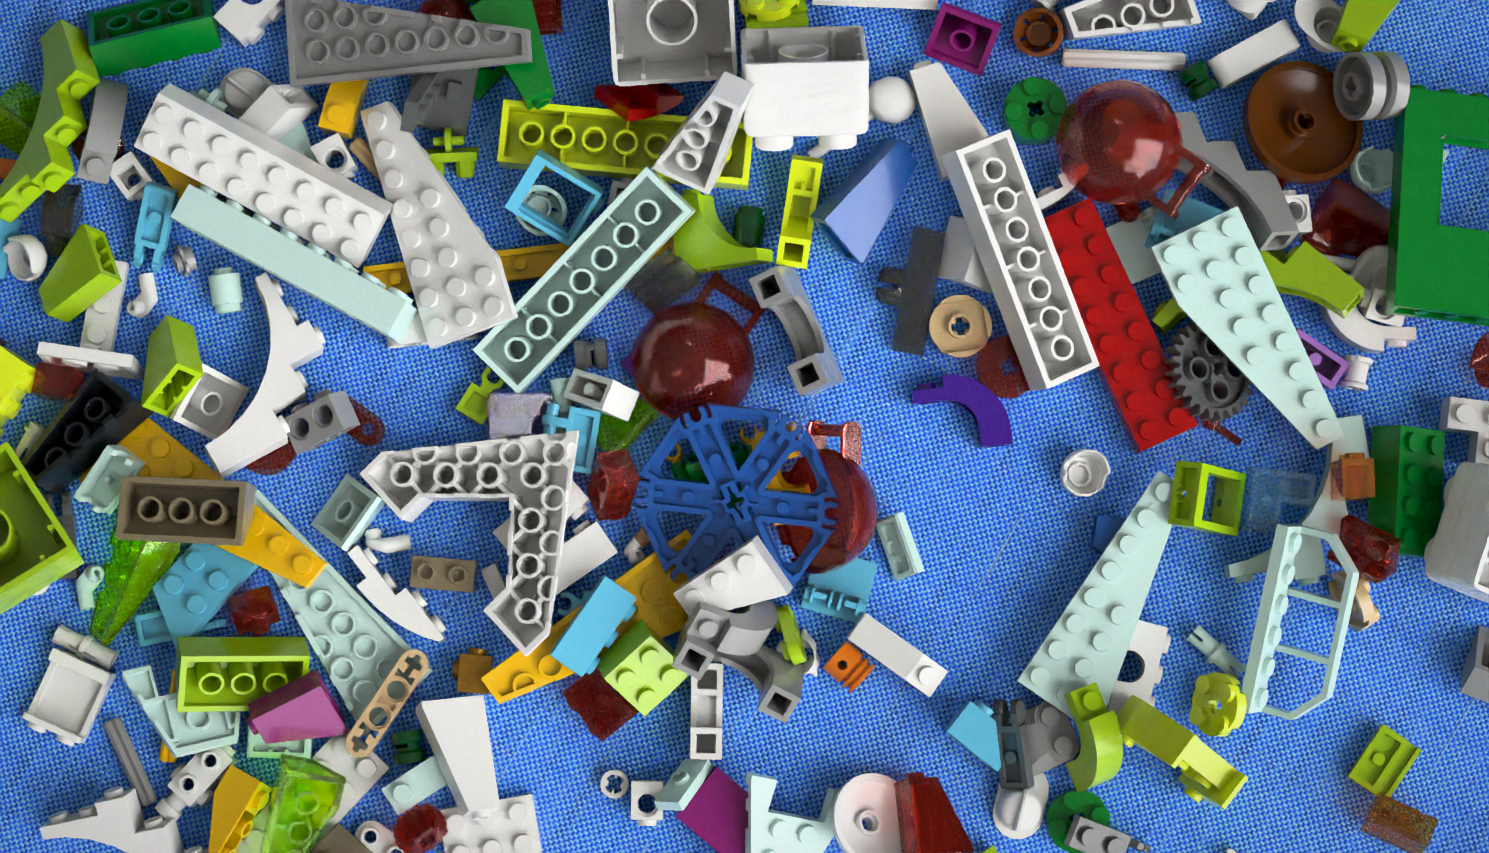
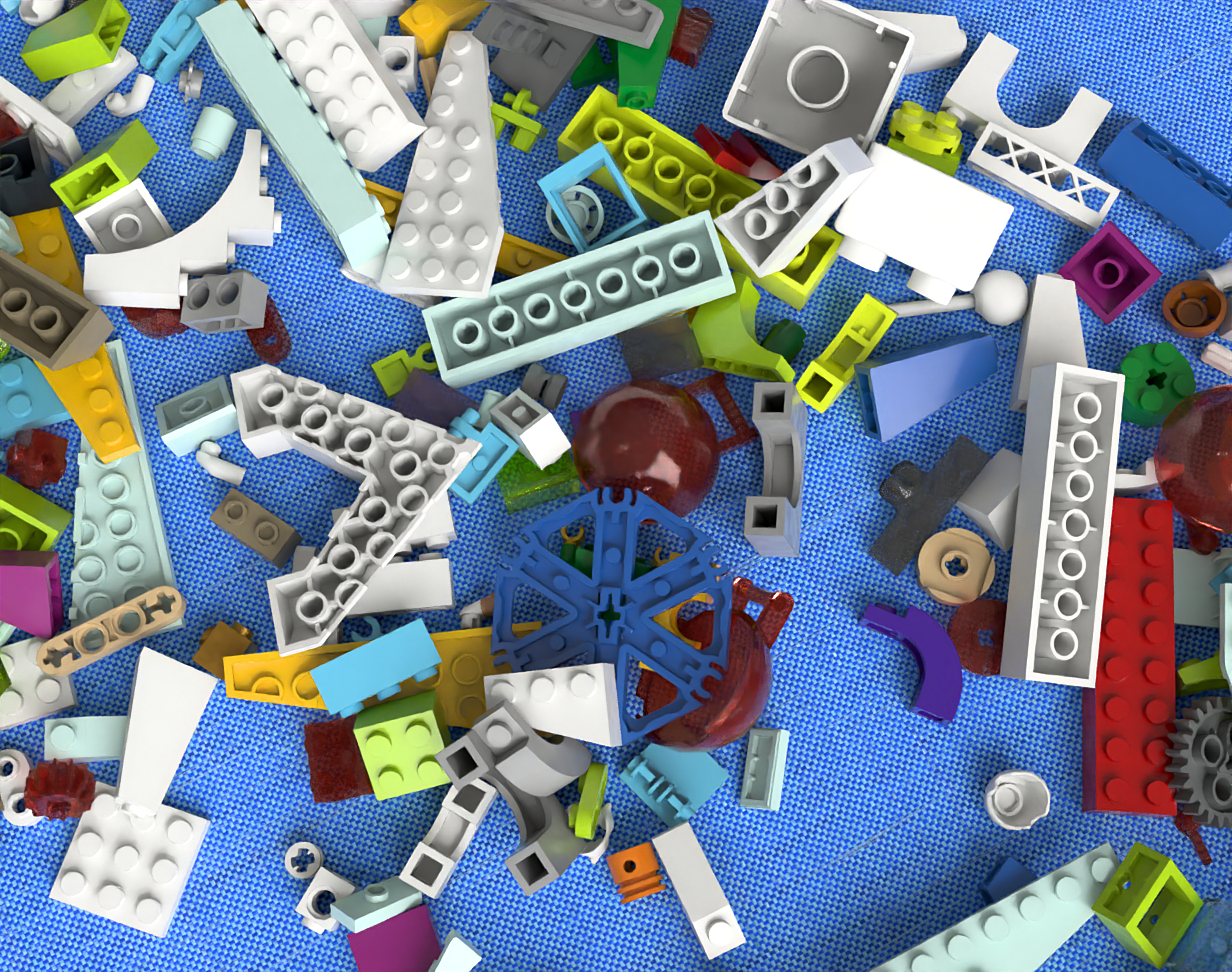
camera: 25 degrees right, 10 degrees down
(403, 608) = (192, 538): white slope -> none
(407, 747) = (106, 692): dark green wheel -> none
(612, 485) = (487, 528): clear red brick -> none

